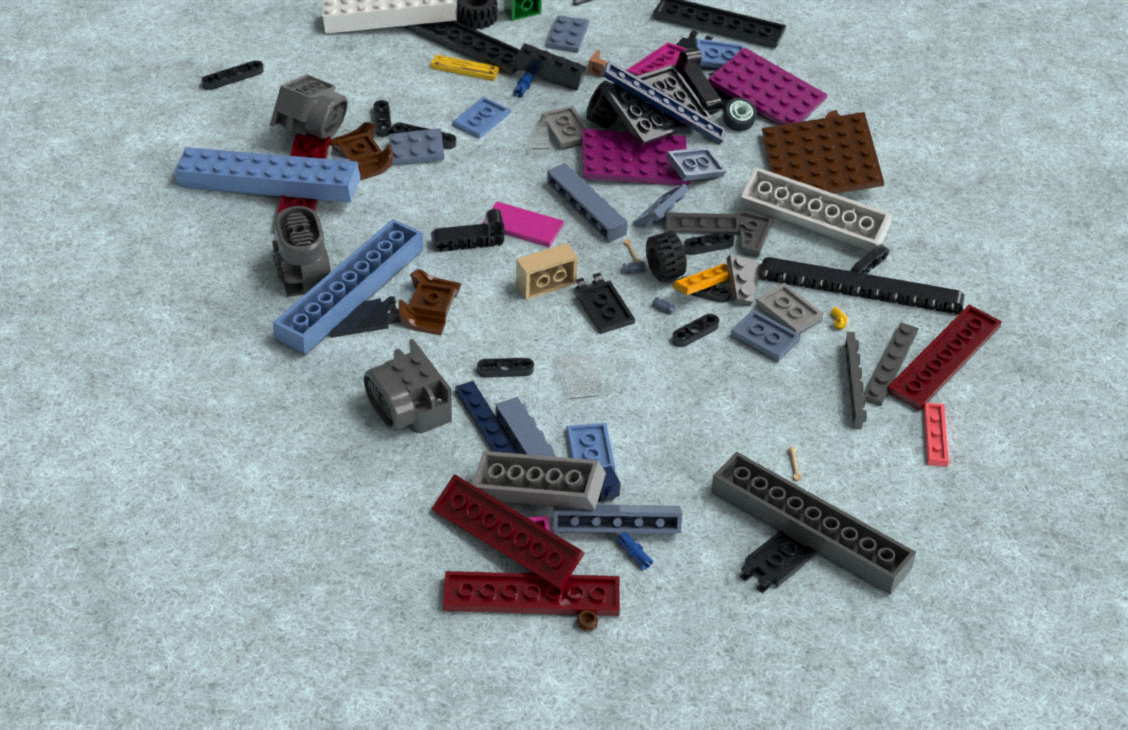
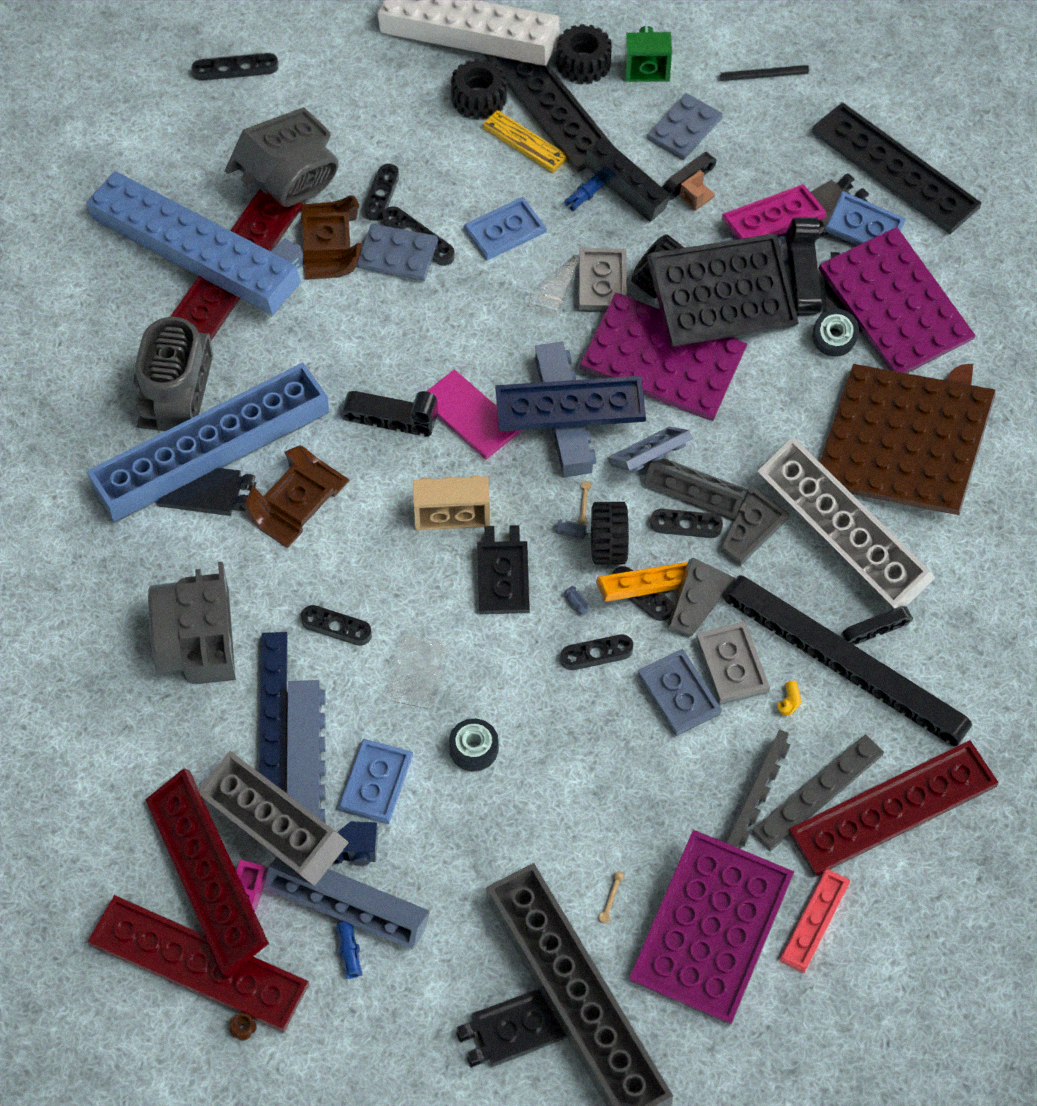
camera: 25 degrees right, 15 degrees up
(416, 44) = (478, 75): none -> black tyre
(584, 59) = (704, 162): none -> black beam
(593, 192) = (570, 403): none -> dark blue plate
(647, 404) = (473, 757): none -> wheel
(664, 102) = (728, 293): dark blue plate -> none
(695, 163) = (731, 396): sand blue plate -> none
(875, 454) = (711, 926): none -> magenta plate

